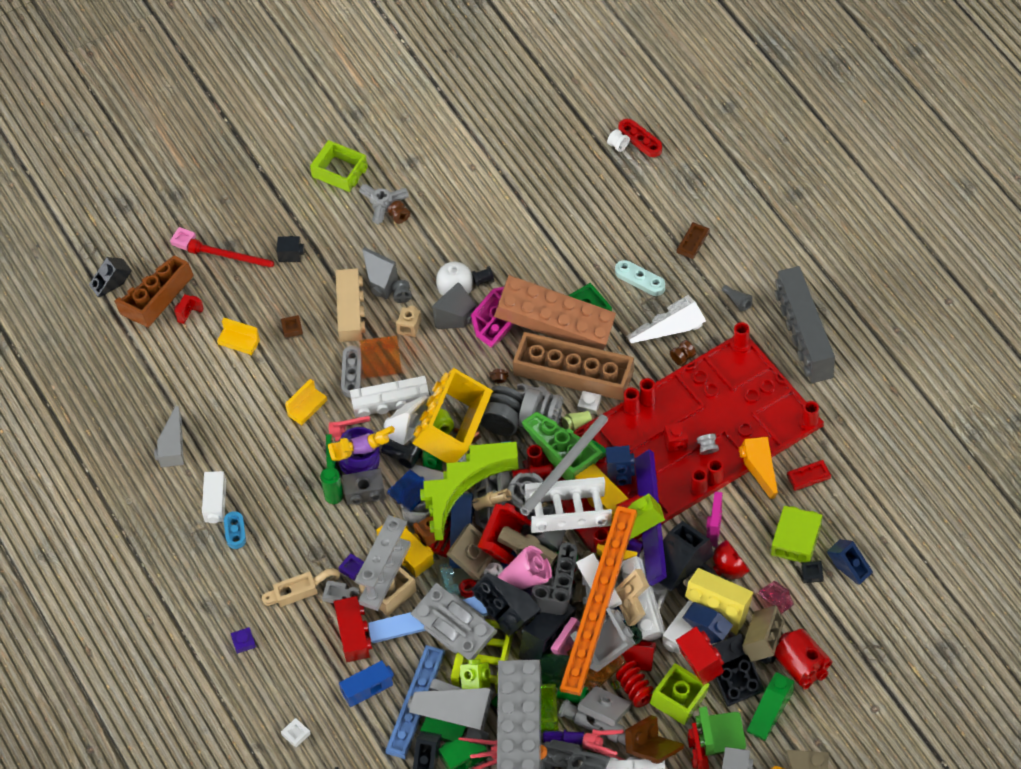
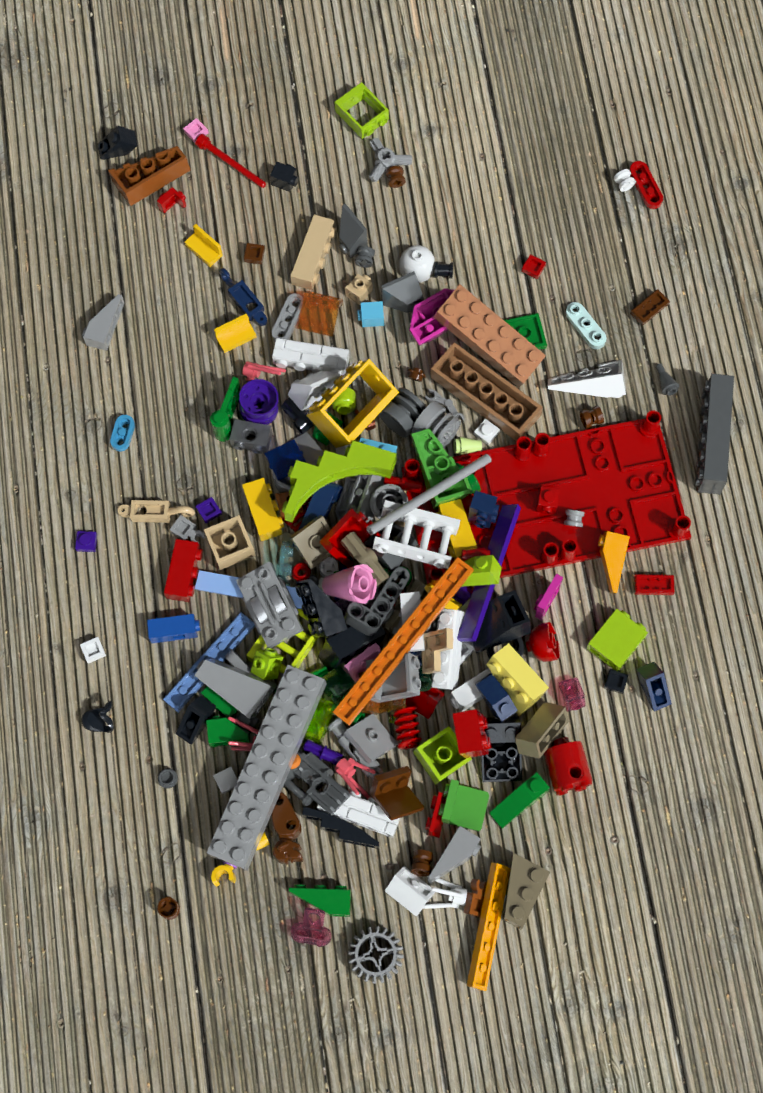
camera: 20 degrees right, 15 degrees up
(214, 497) = (117, 394): white brick -> none
(297, 367) = (242, 297): none -> dark blue piece
(359, 445) = (256, 399): yellow piece -> none
(382, 563) = (226, 525): light grey fence -> none
(431, 338) = (371, 314): none -> medium azure brick
(491, 499) = (353, 498): tan pin -> none
(567, 244) = (533, 266): none -> red plate

